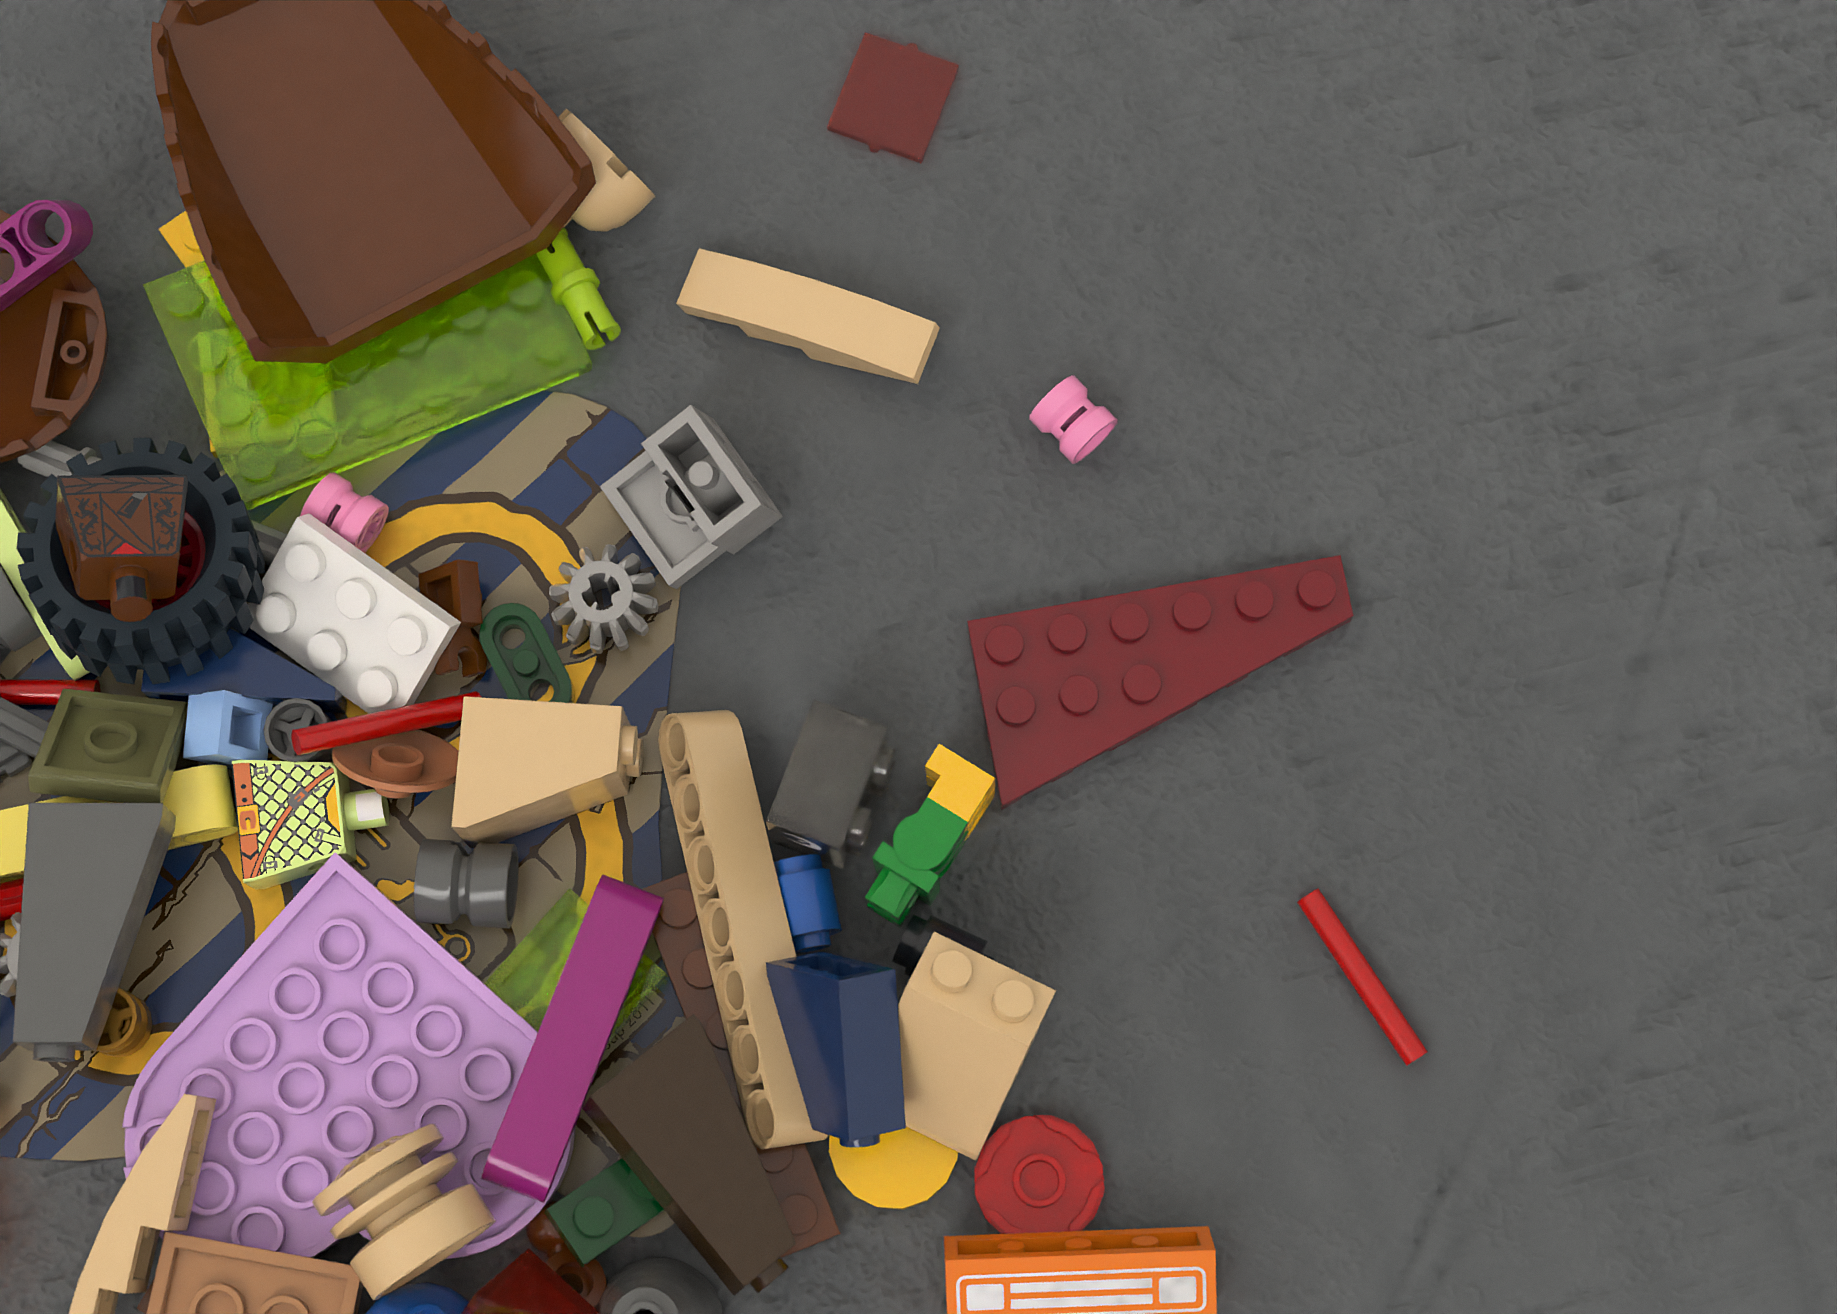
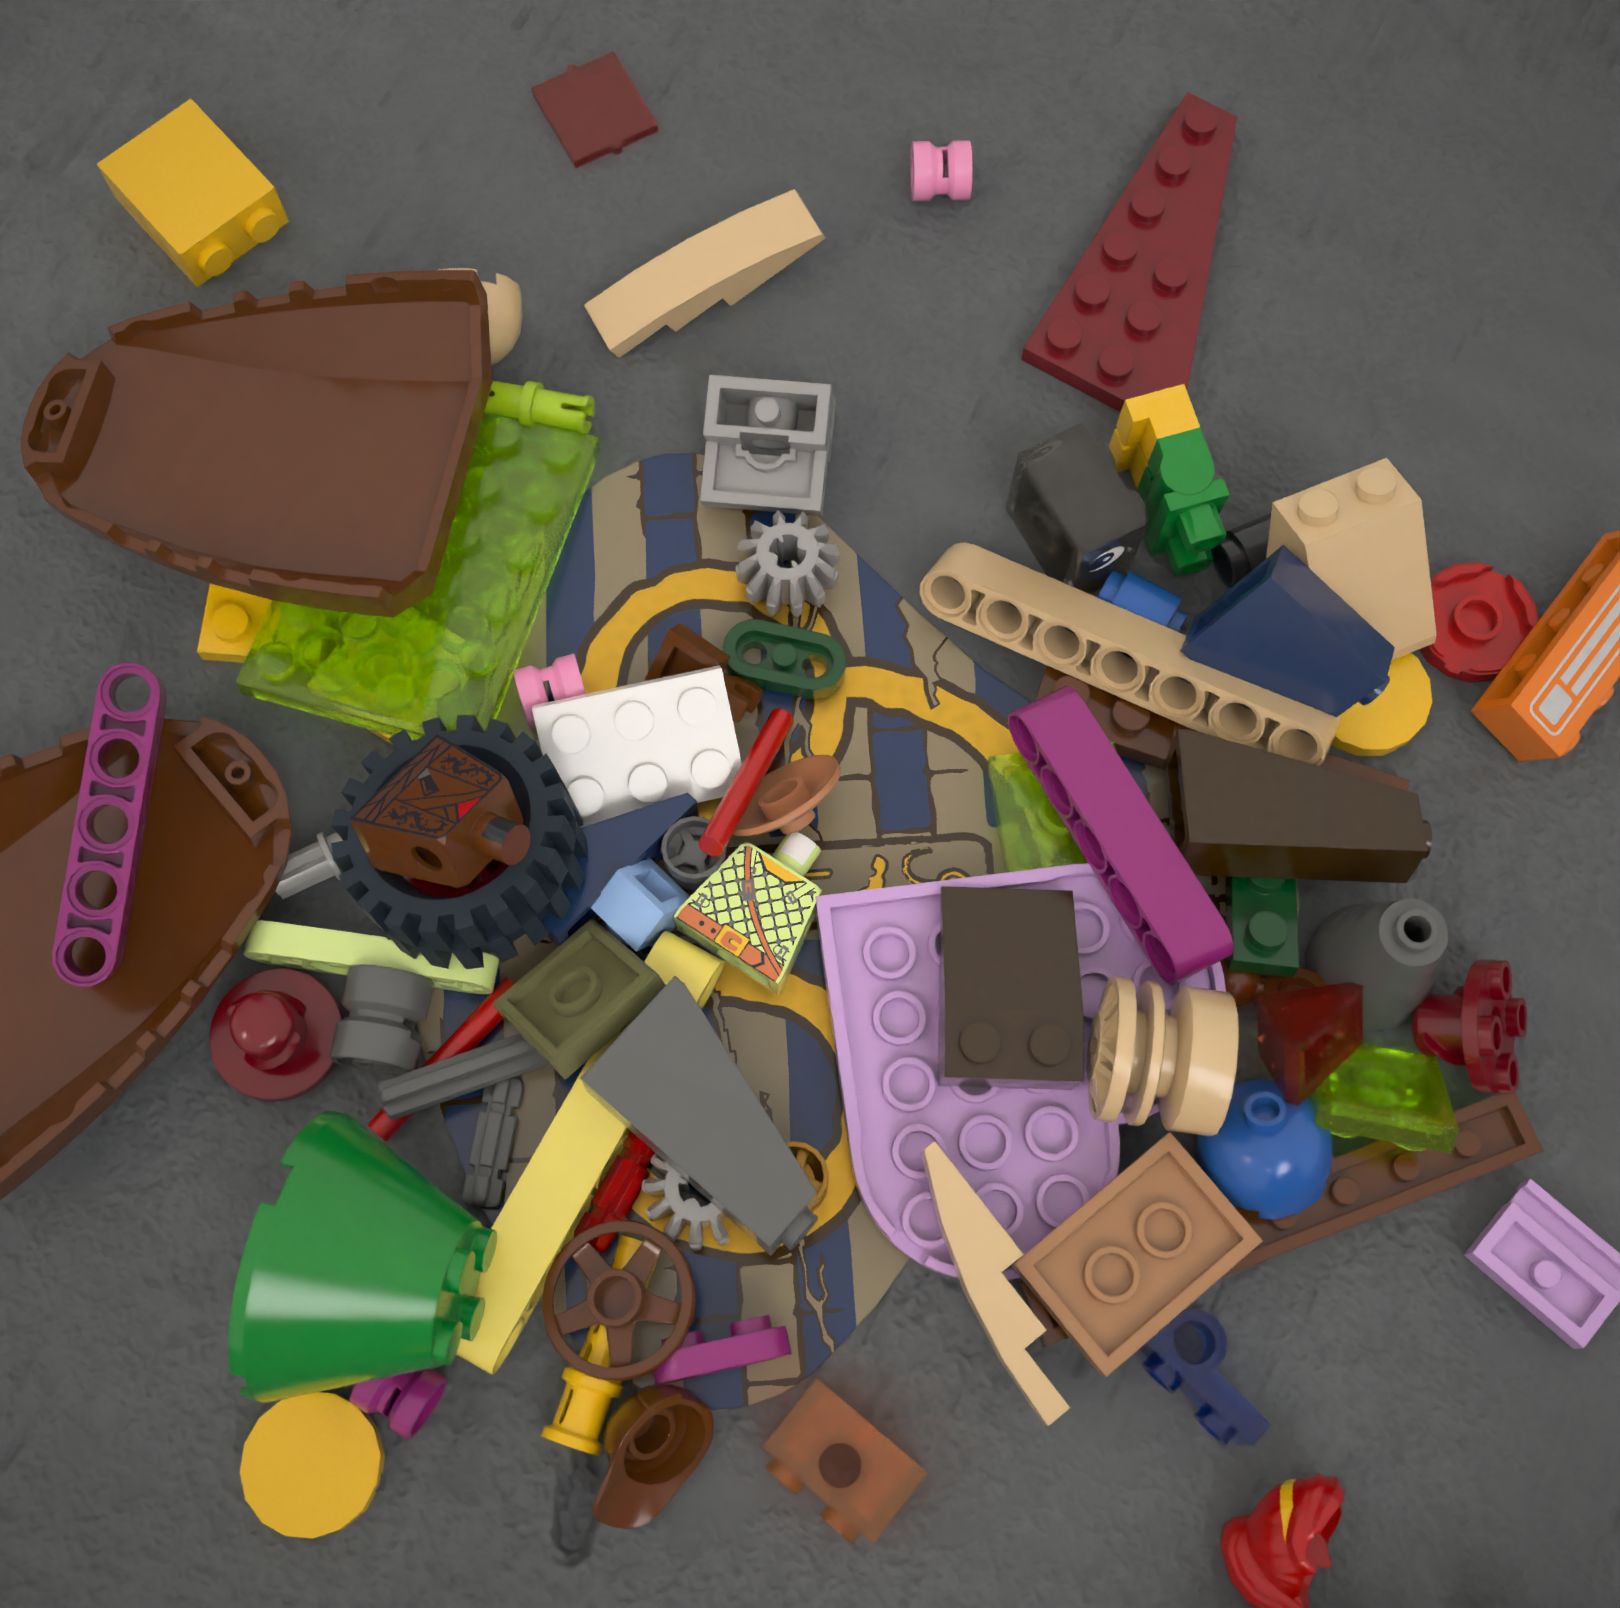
camera: 50 degrees left, 5 degrees down
(376, 1054) = (1009, 989): none -> dark brown slope
(461, 883) = (930, 817): dark grey wheel -> none
(538, 764) = (876, 693): tan slope -> none
(1362, 977) = (1496, 309): red bar -> none

